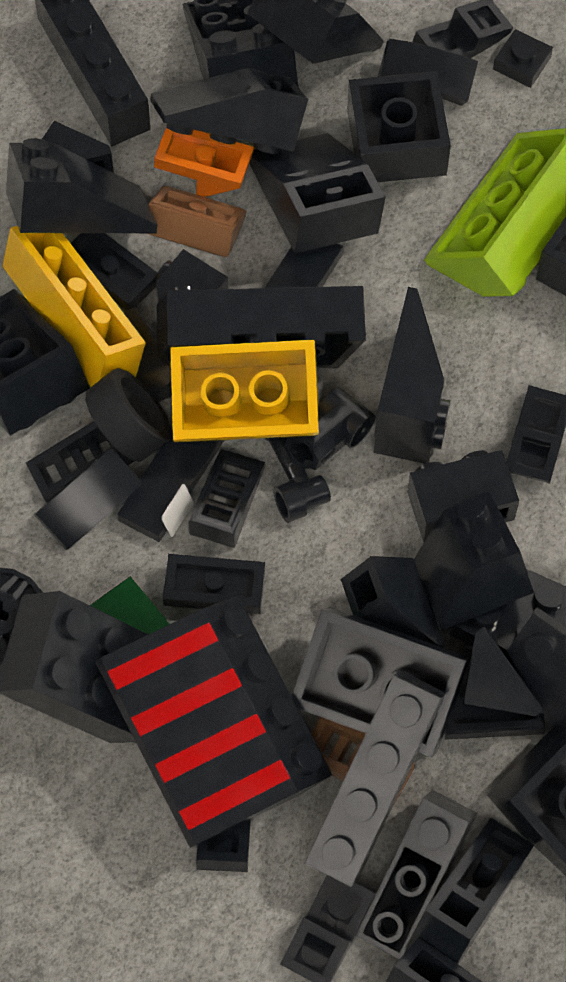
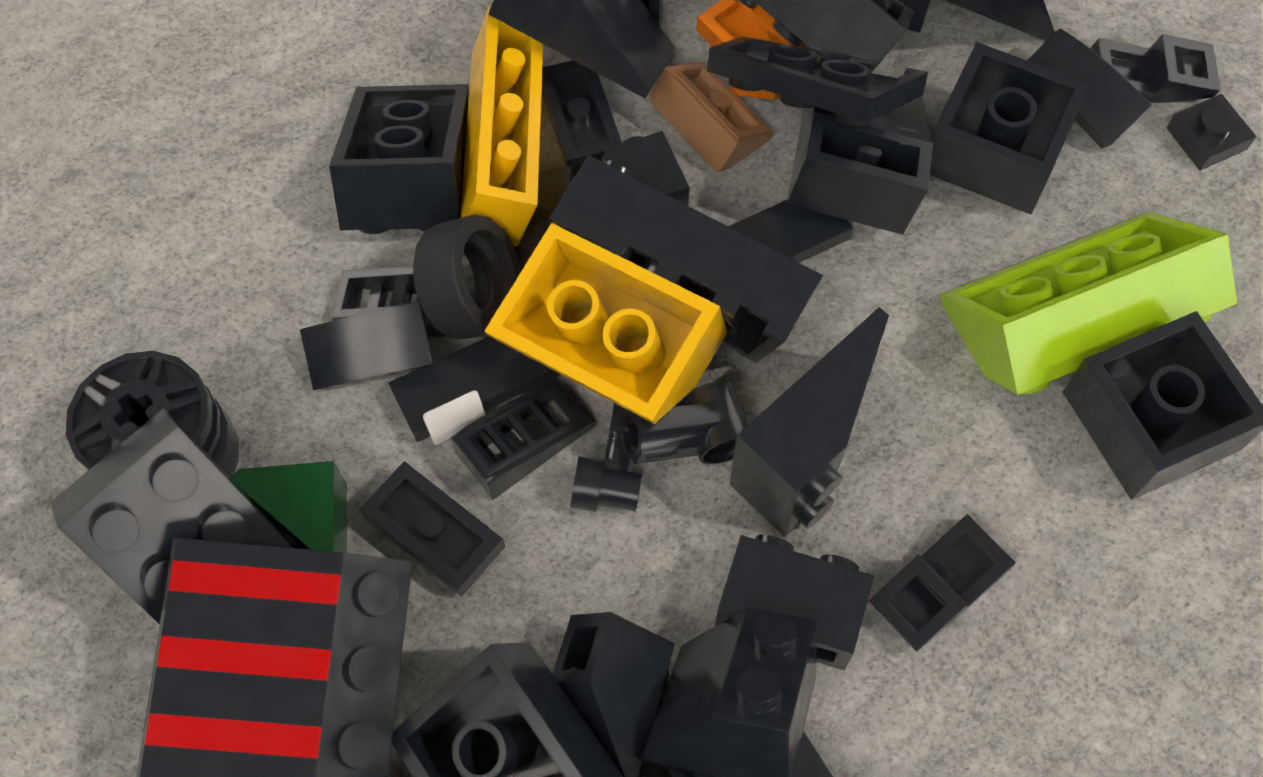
camera: 35 degrees right, 0 degrees up
(284, 159) = (835, 85): none -> black wing

